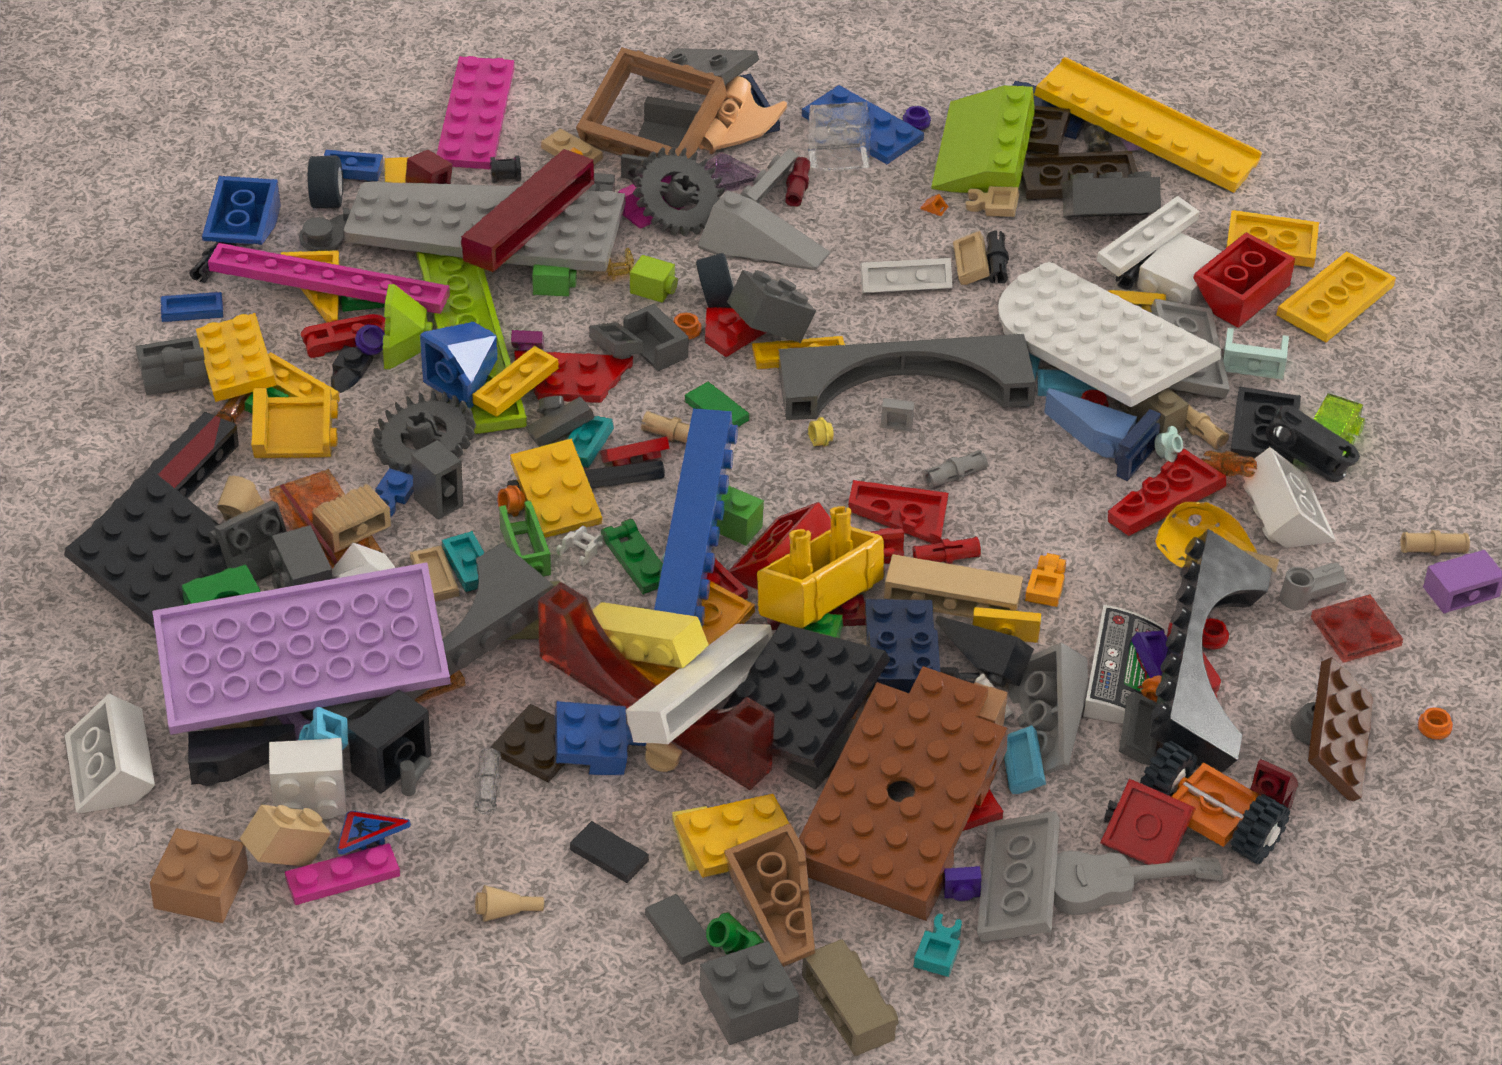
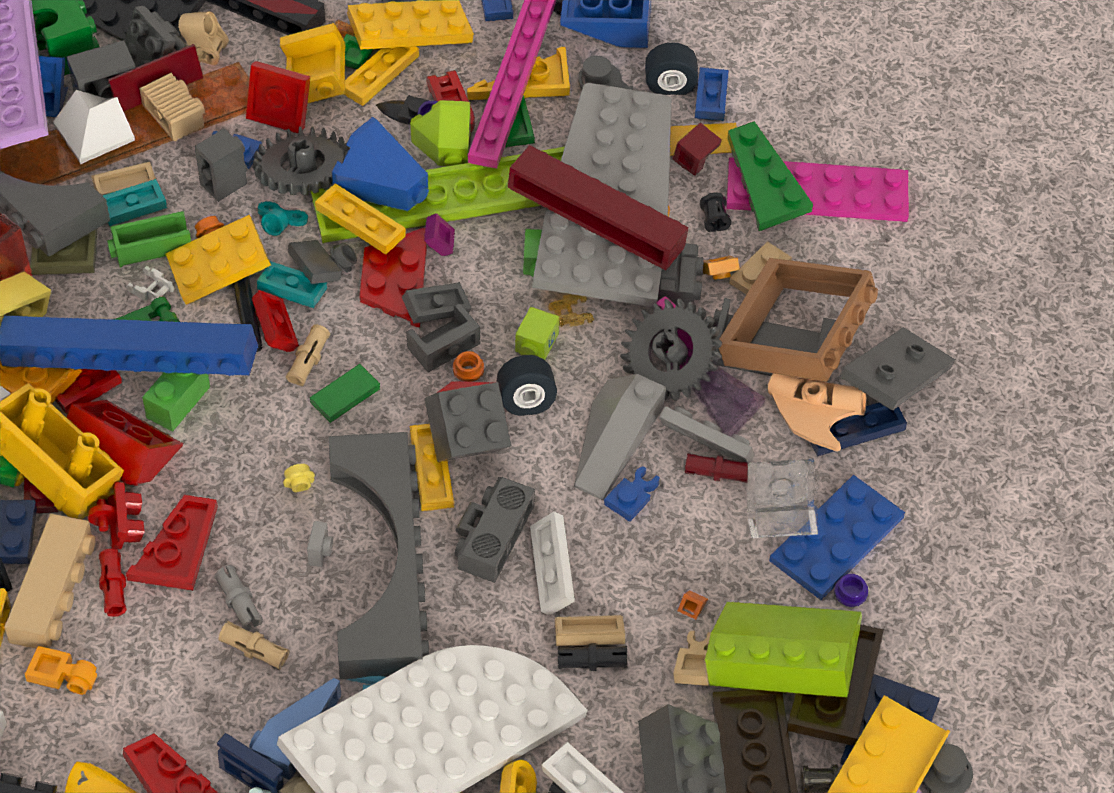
camera: 90 degrees right, 10 degrees up
(342, 442) = (277, 97): none -> red plate
(470, 129) = (769, 183): none -> green wing
(494, 452) = (277, 219): none -> teal piece
(827, 235) = (631, 497): none -> blue plate
(873, 306) = (497, 531): none -> dark grey piece
(1006, 456) = (253, 645): none -> tan pin

